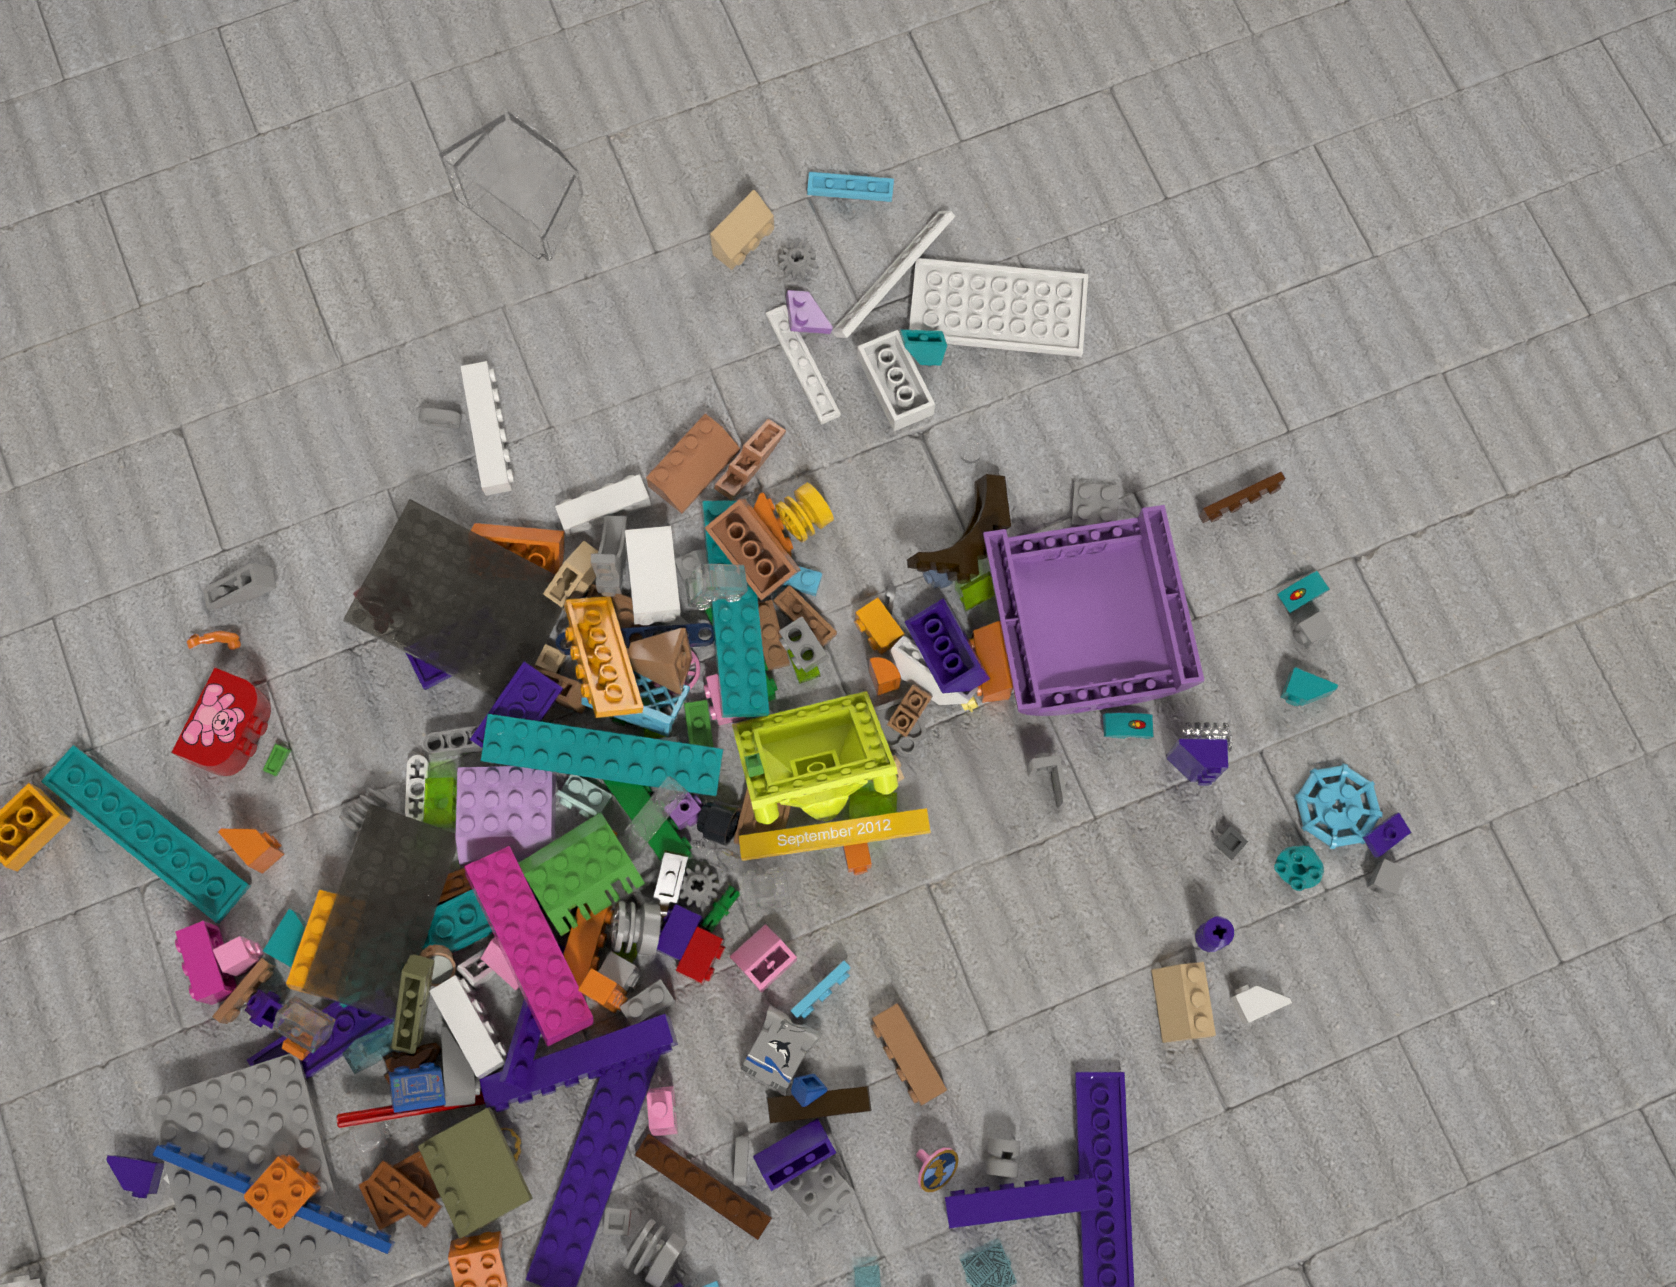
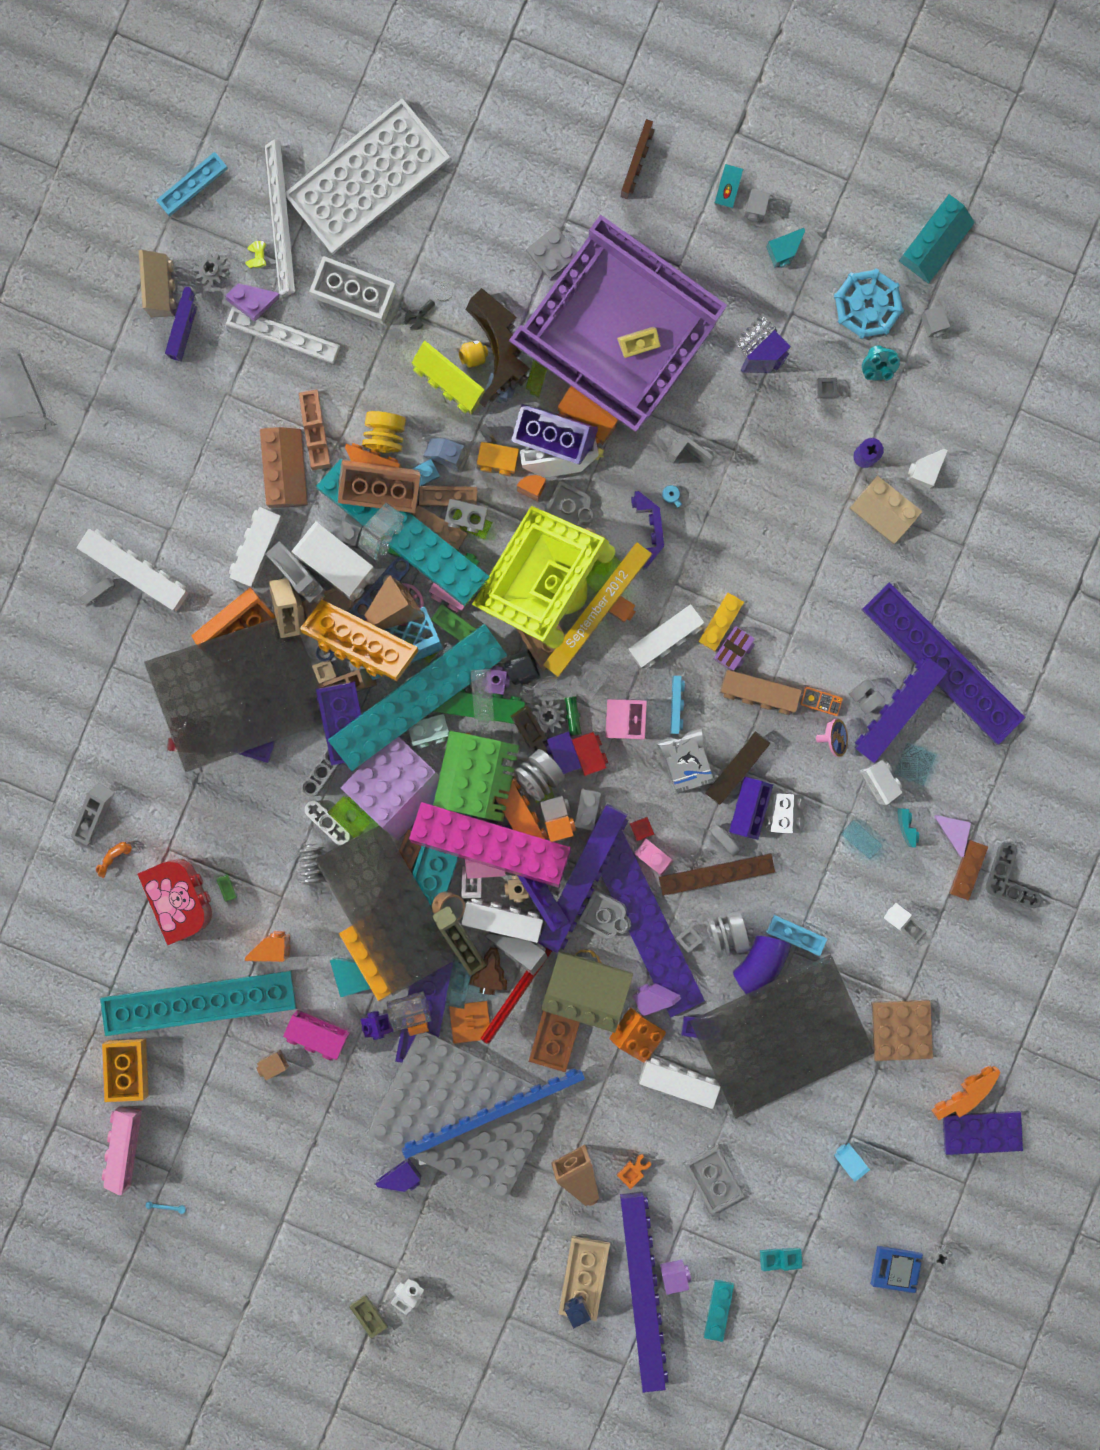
camera: 40 degrees left, 15 degrees up
(143, 952) = (272, 1065): none -> medium nougat brick
(238, 955) = (330, 1013): bright pink brick -> none
(244, 991) = (353, 1027): medium nougat plate -> none
(282, 1190) = (494, 1105): orange bracket -> none
(348, 1091) = (470, 1022): none -> orange piece
(404, 1193) = (560, 1040): dark orange plate -> none
(416, 1087) = (509, 981): blue slope -> none
(505, 1009) = (510, 890): none -> tan brick
(528, 1244) = (654, 998): none -> medium lavender slope
(564, 1119) = (605, 915): none -> light grey plate
(678, 1073) = (642, 828): none -> red tile
(728, 280) = (181, 326): none -> dark purple hinge
(754, 765) = (517, 617): bright green piece -> none
(807, 1089) = (724, 766): blue slope -> none
(839, 580) = (445, 452): none -> sand blue slope
(842, 291) = (258, 248): none -> neon yellow piece
(872, 919) = (665, 636): none -> white brick
(902, 519) = (448, 378): none -> neon yellow slope
(909, 710) = (567, 492): medium nougat slope -> none
(922, 992) = (734, 648): none -> brick
(925, 346) = (349, 249): teal slope -> none
(930, 451) = (418, 315): none -> pearl dark grey bar
(935, 956) = (721, 621): none -> yellow plate
(939, 1255) = (881, 782): none -> white slope
(944, 522) = (473, 354): none -> yellow head
(956, 1121) = (821, 701): none -> tile
(966, 786) = (643, 504): none -> dark purple slope
(1000, 807) = (672, 499): none -> medium azure piece
(1097, 645) = (639, 342): none -> light yellow slope
(1128, 725) = (702, 374): teal slope -> none
(1386, 835) = (912, 294): dark purple plate -> none
(1455, 809) = (938, 239): none -> teal slope

